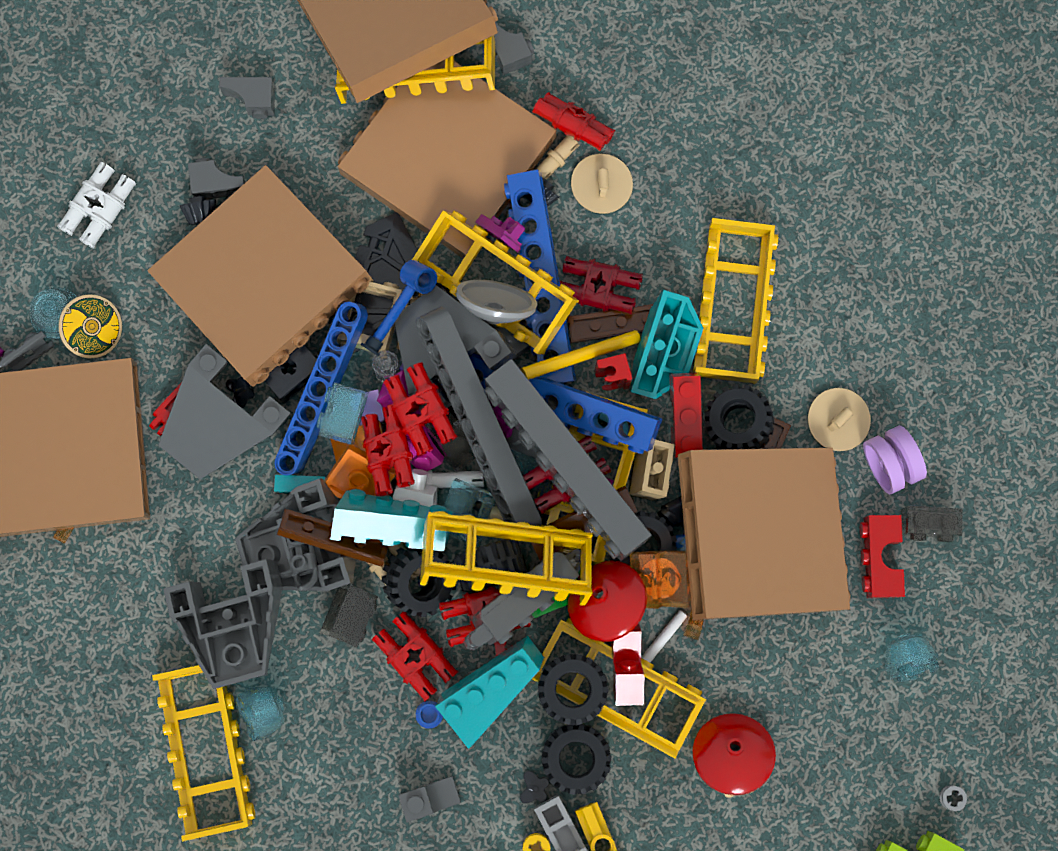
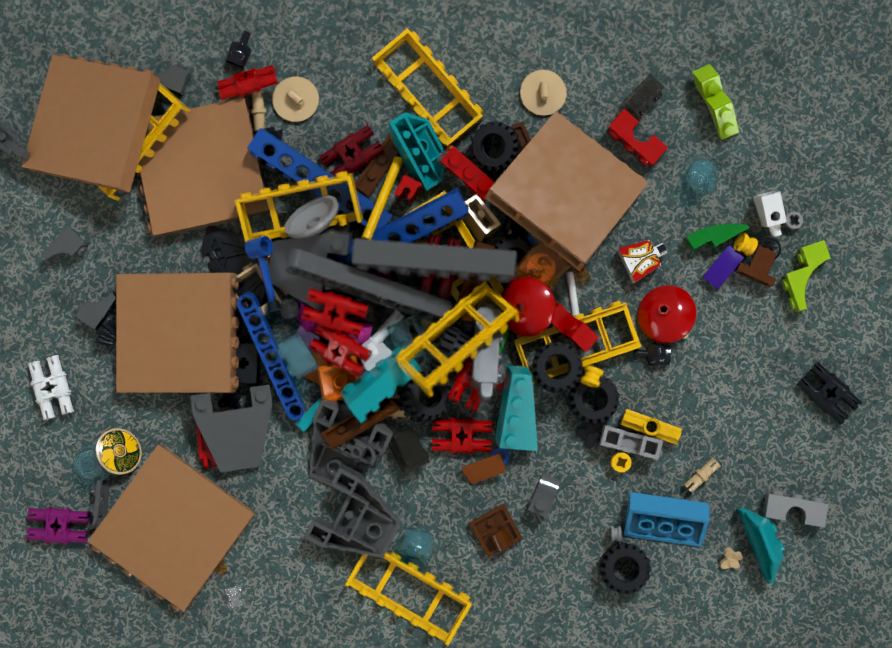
camera: 40 degrees left, 5 degrees up
(43, 573) = (234, 595): none -> clear wheel
(348, 781) = (495, 530): none -> reddish brown plate
(401, 710) = (484, 468): none -> dark orange slope
(505, 232) = (278, 177): magenta plate -> none
(596, 734) = (591, 376): none -> yellow wheel
(597, 87) = (239, 51): none -> black piece
(681, 780) = (655, 354): none -> black piece
(765, 674) = (641, 258): none -> torso
(836, 768) = (723, 266): none -> dark purple slope
(860, 728) = (714, 235): none -> green slope
(878, 804) = (761, 262): none -> reddish brown piece
(882, 770) = (745, 244): none -> yellow wheel
(895, 459) = (592, 84): lavender wheel -> none
(944, 755) = (766, 205): none -> white torso
(998, 608) = (718, 103): none -> lime arch

